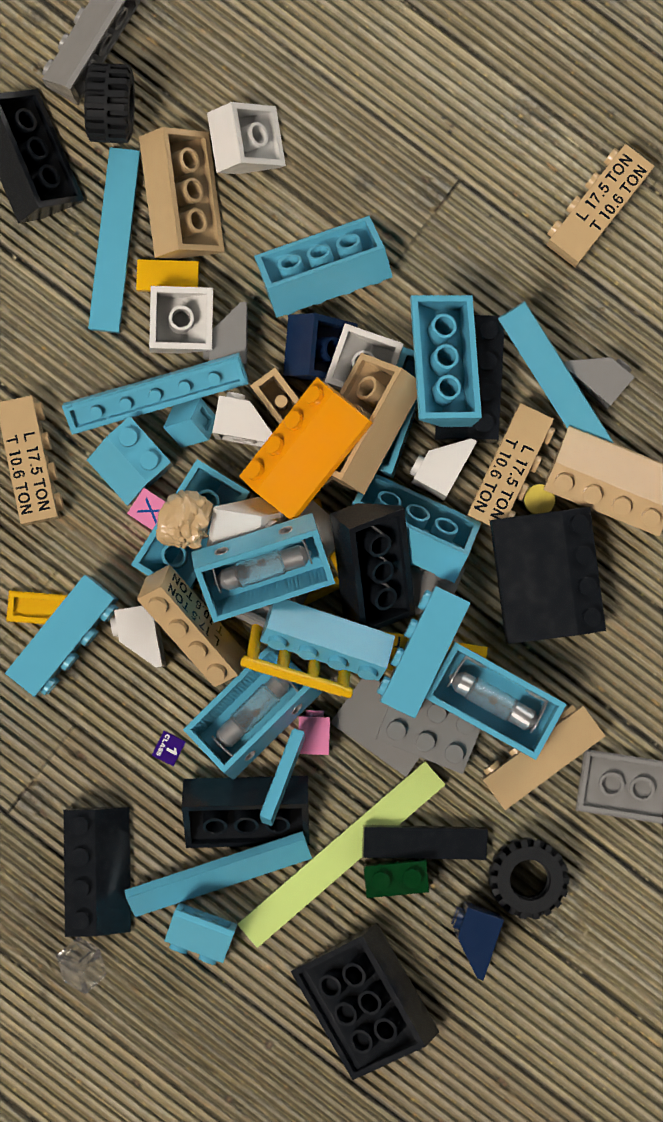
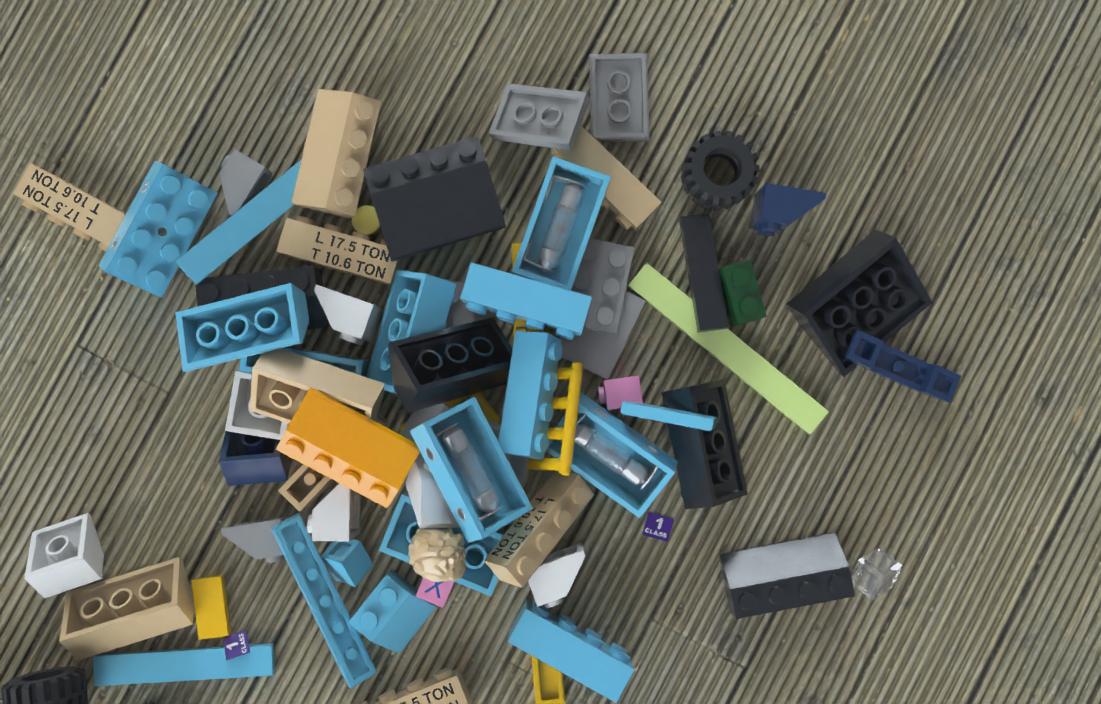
camera: 100 degrees left, 0 degrees up
(125, 296) = (236, 644): none -> dark purple sticker
(180, 319) = (248, 589): white slope -> none
(200, 933) = (826, 467): medium azure slope -> none
(218, 874) = (767, 460): medium azure tile -> none
(290, 1032) = (901, 367): none -> dark blue slope
(323, 266) = (177, 459): medium azure slope -> none
(563, 286) = (157, 229): none -> medium azure piece
(616, 698) = (539, 116): none -> light grey plate

